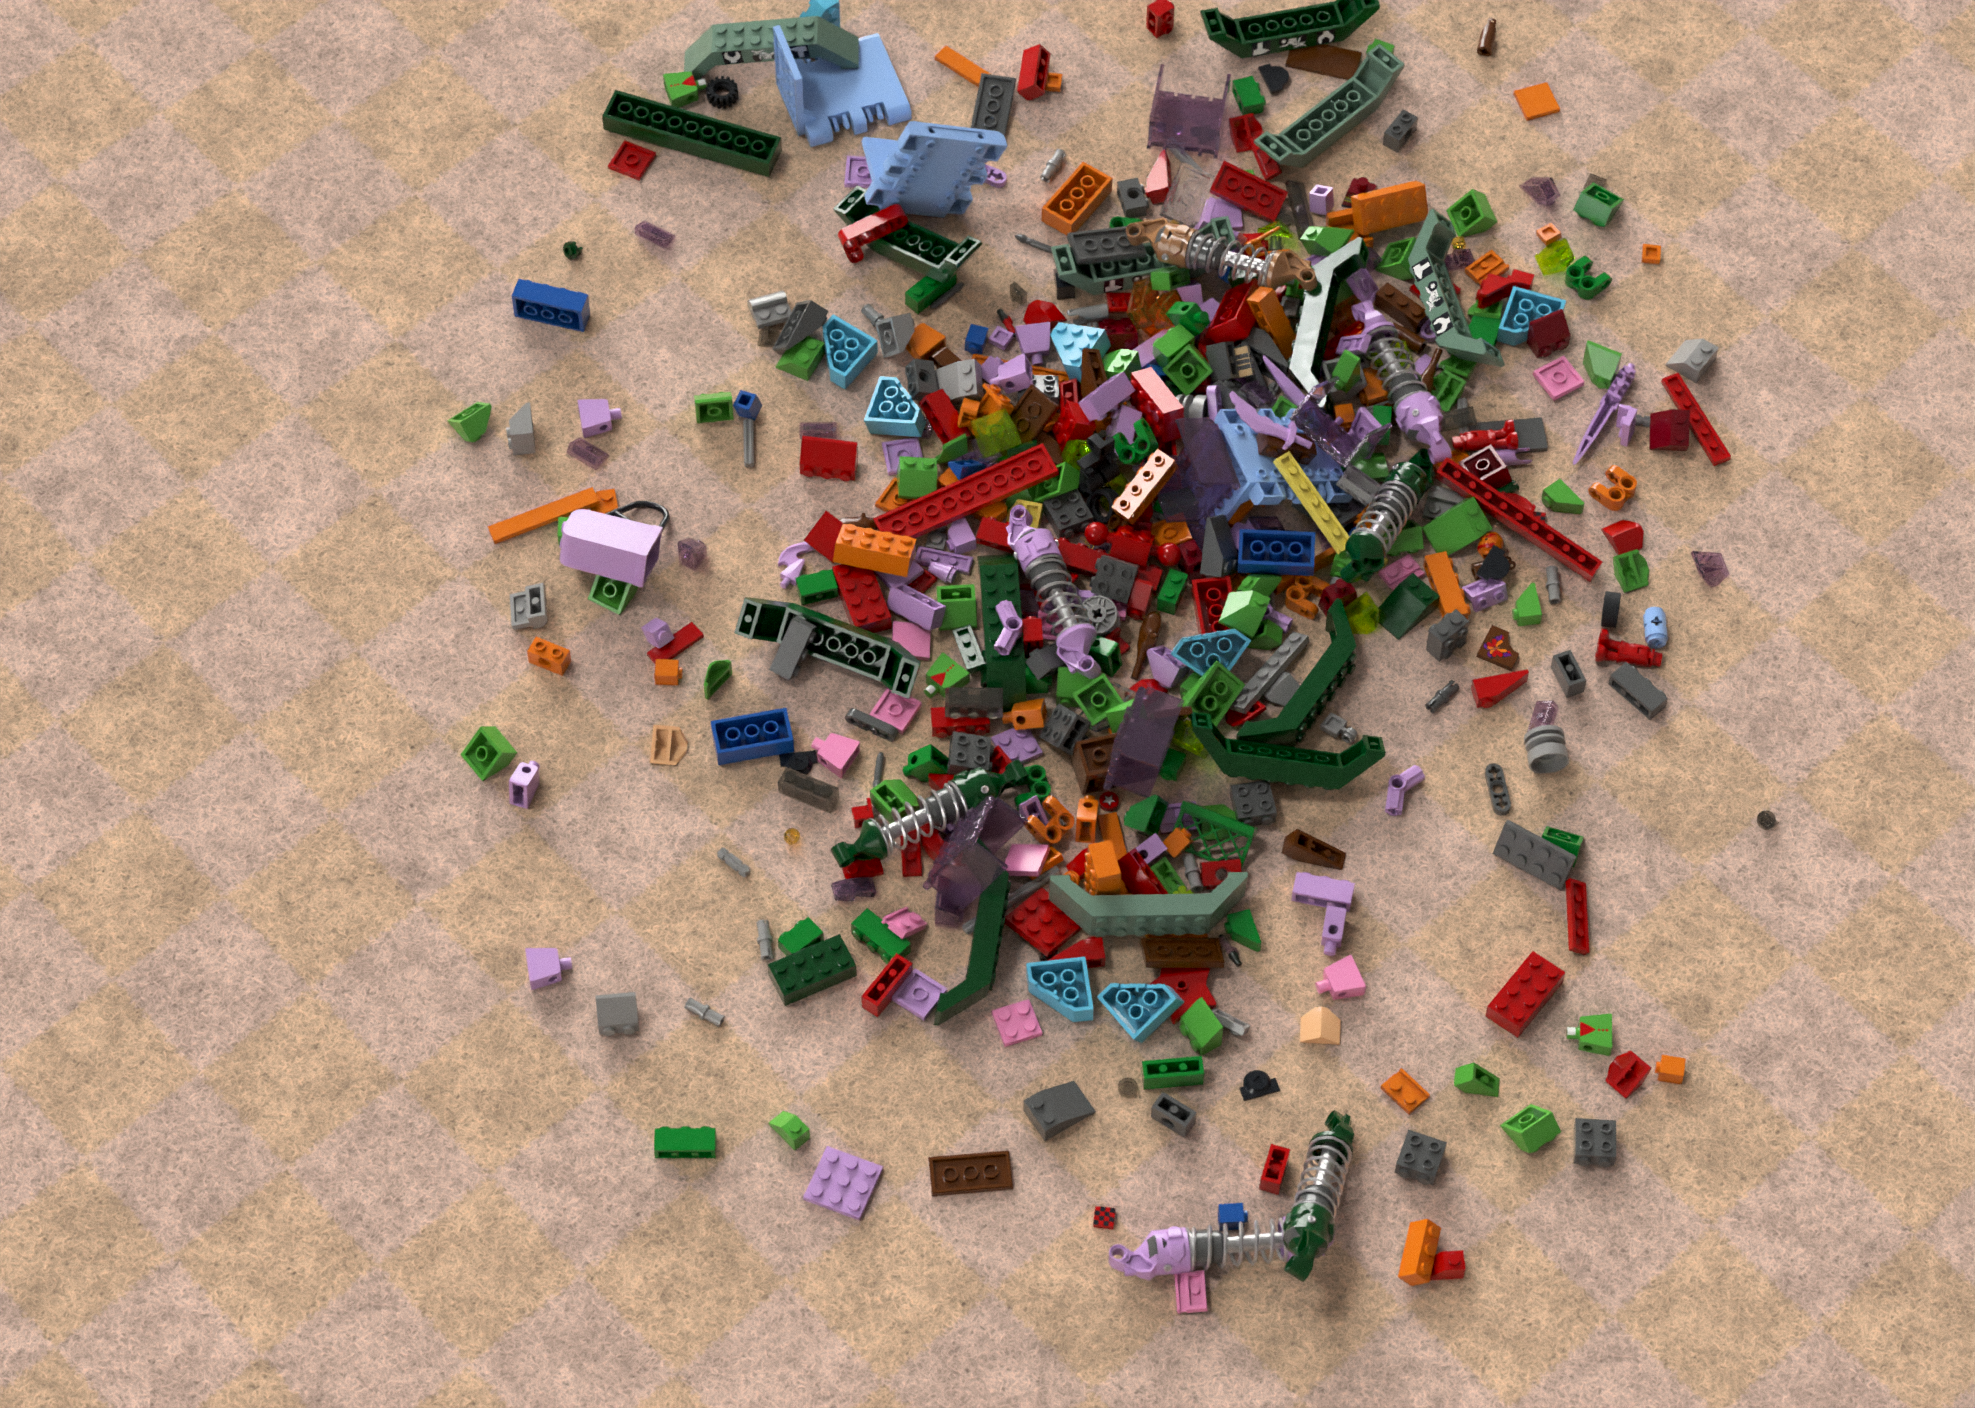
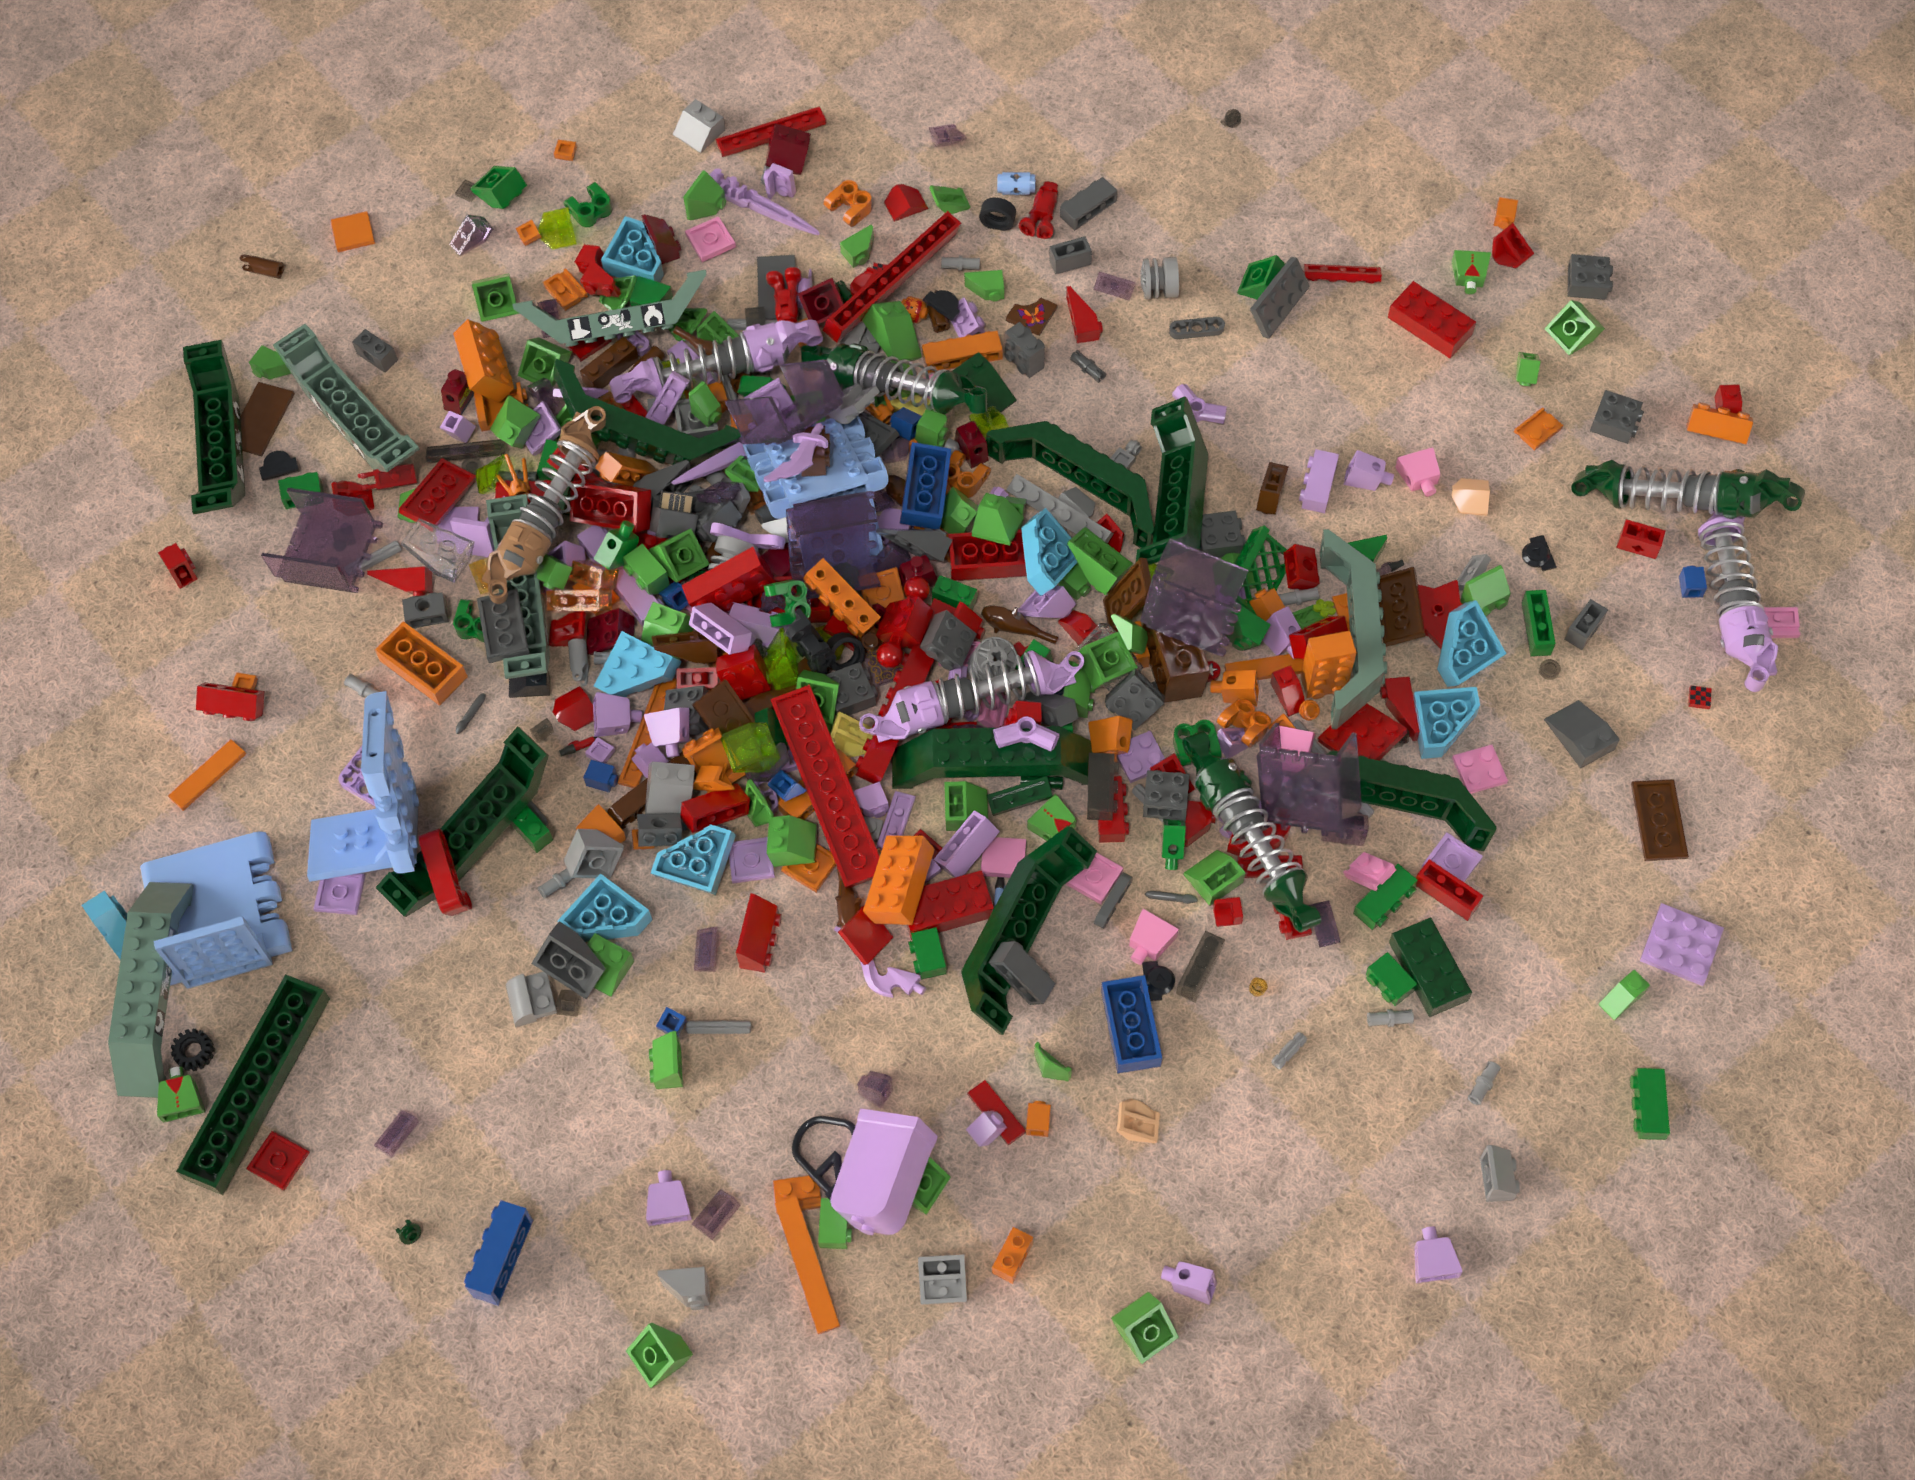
camera: 85 degrees left, 5 degrees up
(943, 572) = (915, 820): lavender cone -> none
(993, 103) = (269, 748): dark grey tile -> none
(1312, 501) = (883, 434): light yellow plate -> none

